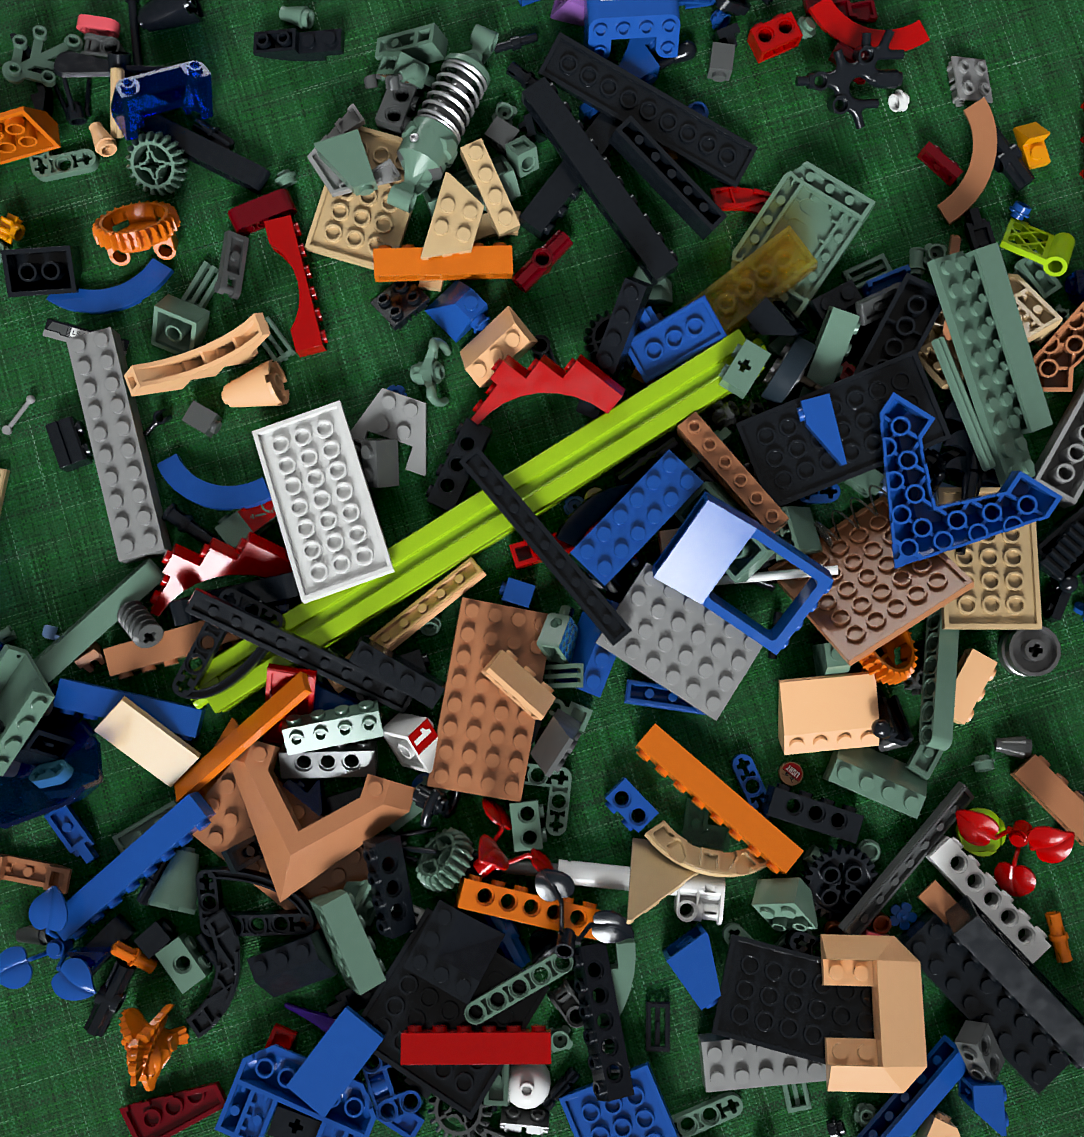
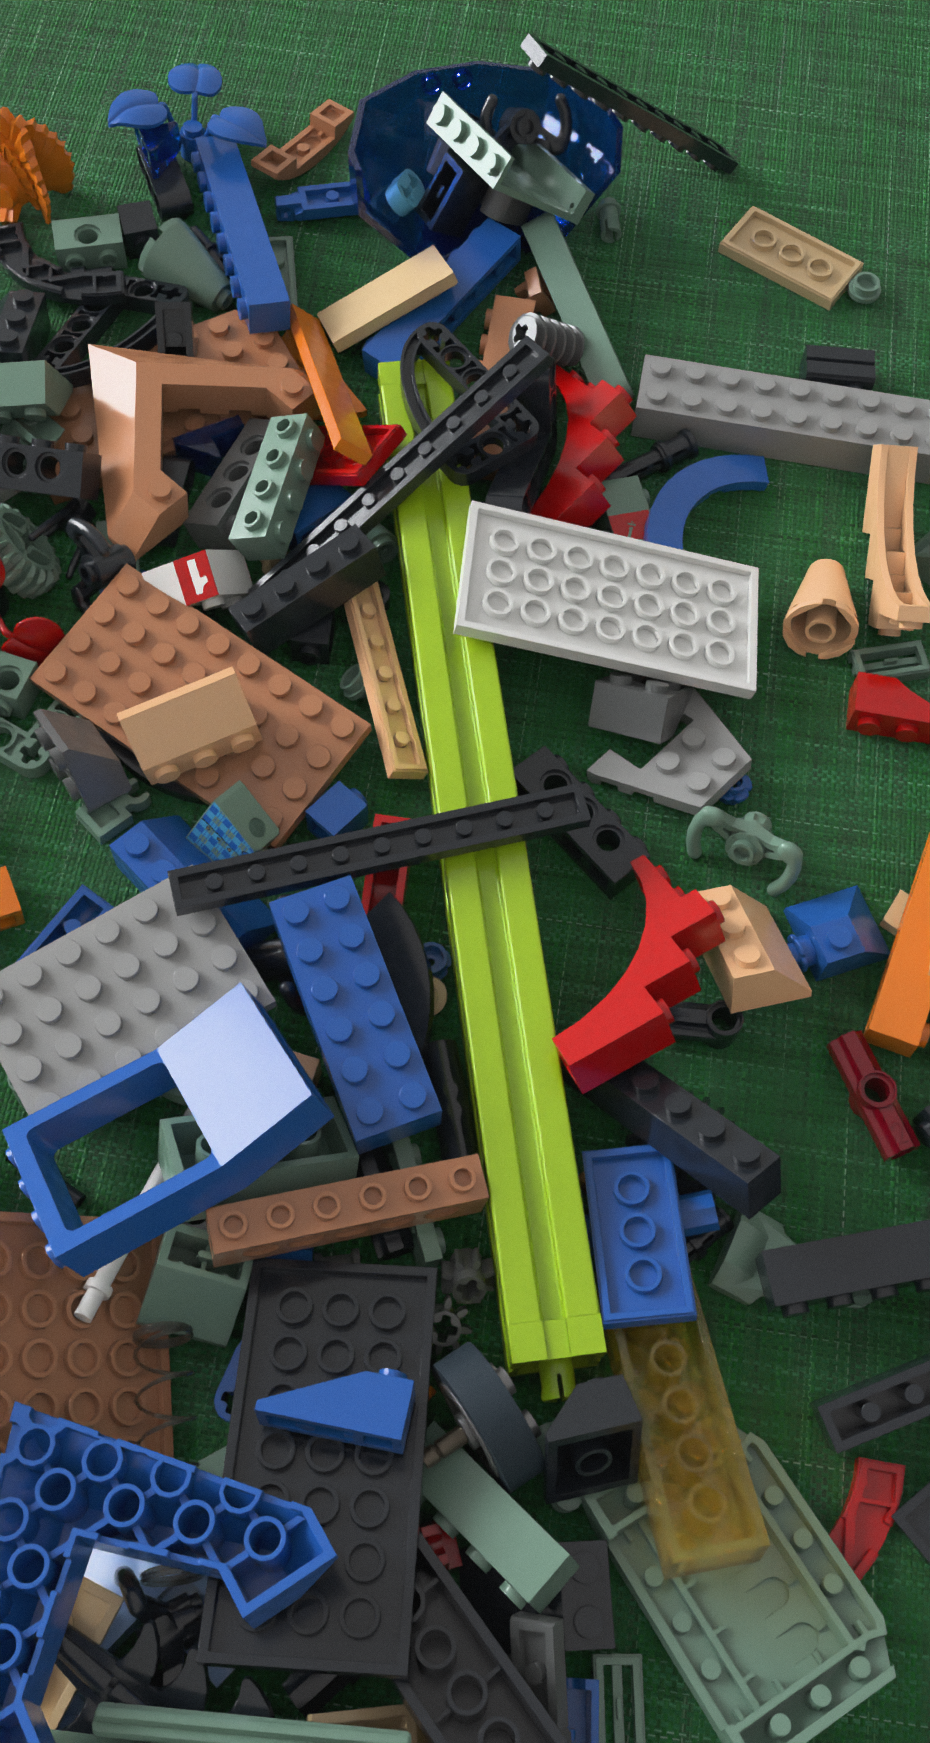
camera: 110 degrees right, 20 degrees down
(30, 399) = (886, 325): light grey hinge -> none
(50, 632) = (590, 270): light blue hand -> none
(109, 998) = (100, 165): black piece -> none
(133, 957) = (134, 192): orange axle -> none
(158, 419) = (828, 483): black hand -> none
(202, 419) = (805, 529): dark grey brick -> none
(400, 302) = (881, 853): black hinge -> none
(551, 676) = (166, 813): sand green tile -> none
(753, 358) = (526, 1340): sand green brick -> none

